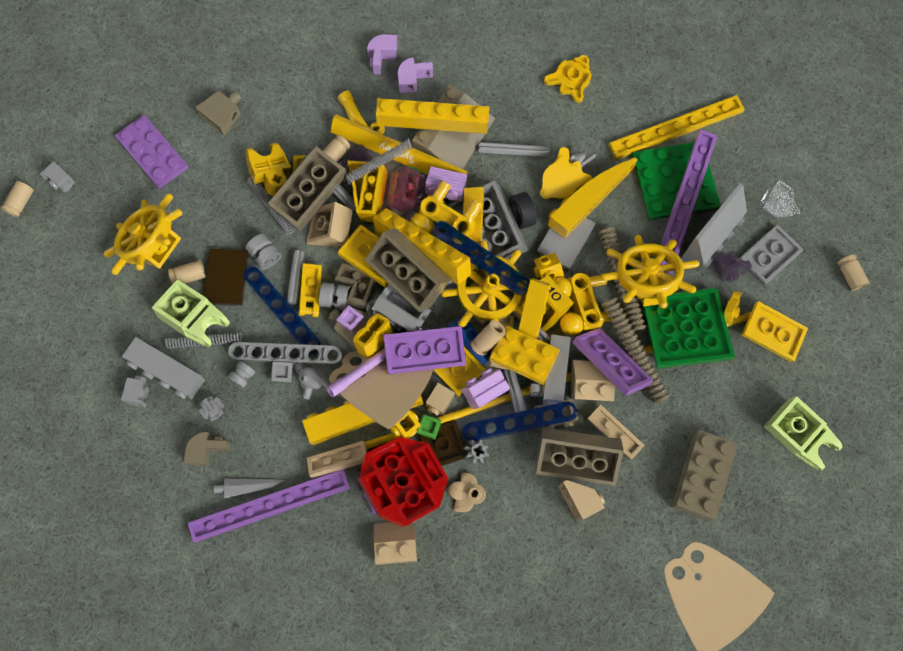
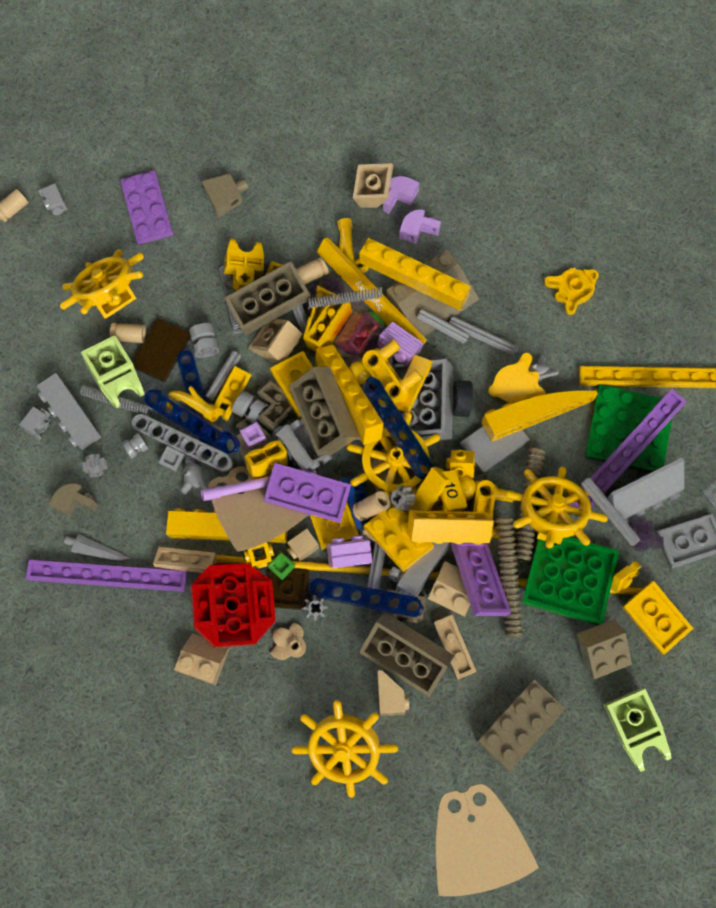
camera: 30 degrees right, 0 degrees up
(286, 329) = (190, 424): none -> clear blue beam
(299, 313) = (196, 402): none -> yellow plant
(356, 52) = (372, 184): none -> tan slope
(473, 153) = (442, 326): none -> light grey axle
(514, 318) = (403, 497): none -> light grey gear
(564, 565) = (344, 748): none -> yellow piece
(567, 326) = (449, 527): none -> yellow brick
(699, 255) = (609, 510): none -> light grey axle
(745, 377) = (604, 649): none -> dark tan brick

